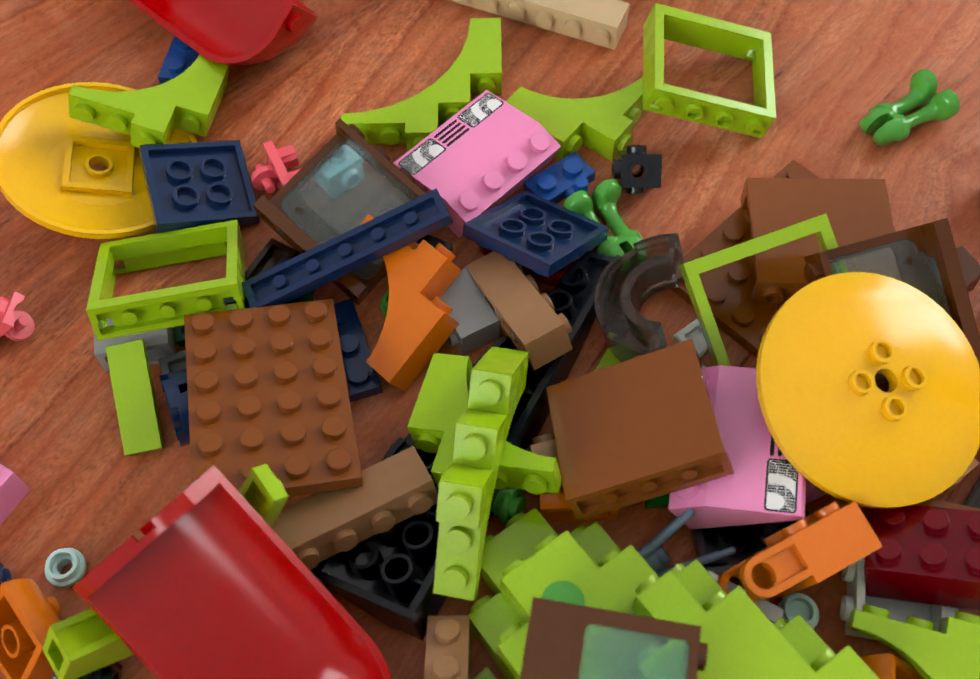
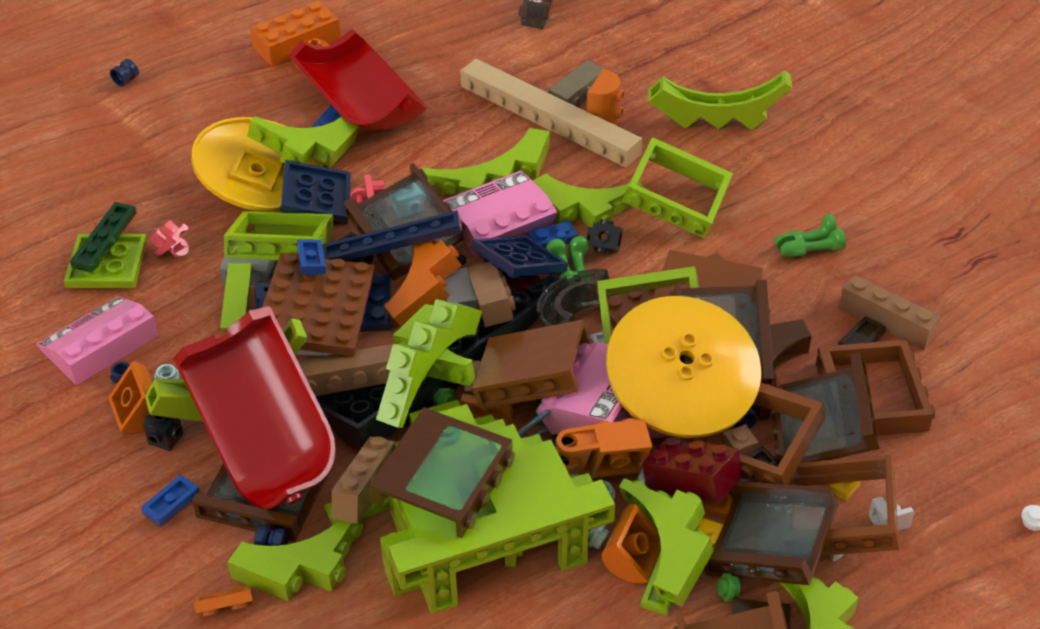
camera: 15 degrees right, 15 degrees down
(237, 319) = (311, 257): none -> blue plate

